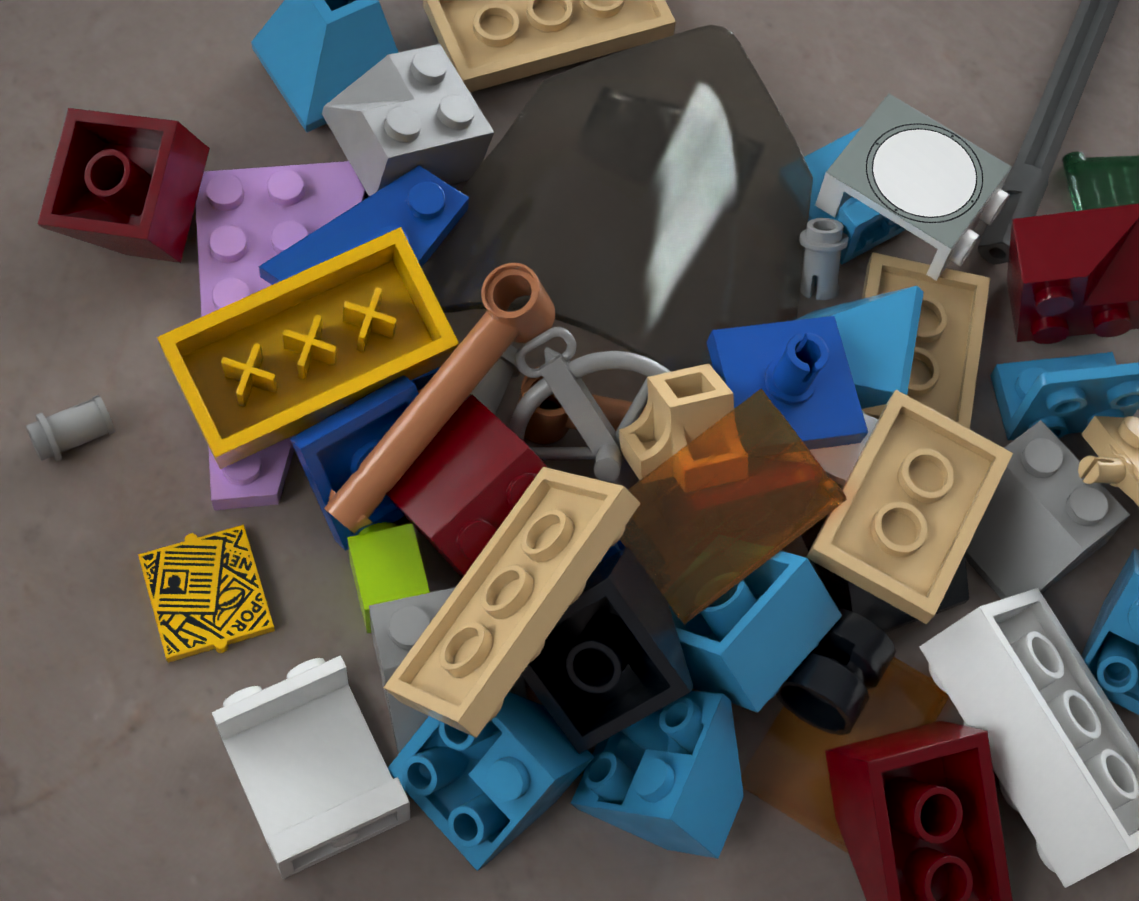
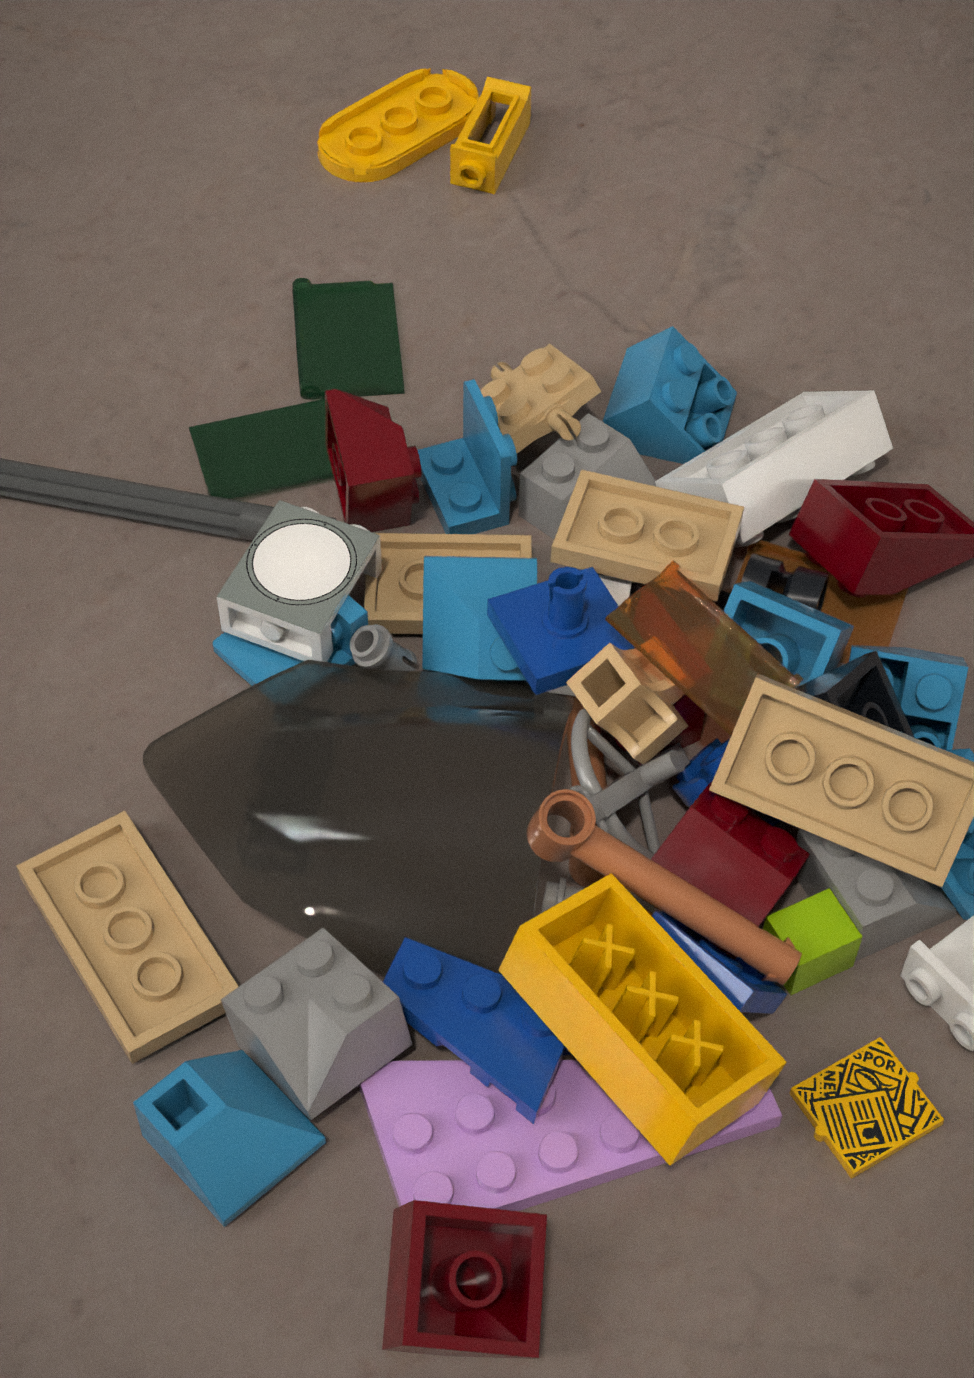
camera: 95 degrees left, 10 degrees down
(69, 428) = (749, 1272): light grey pin -> none

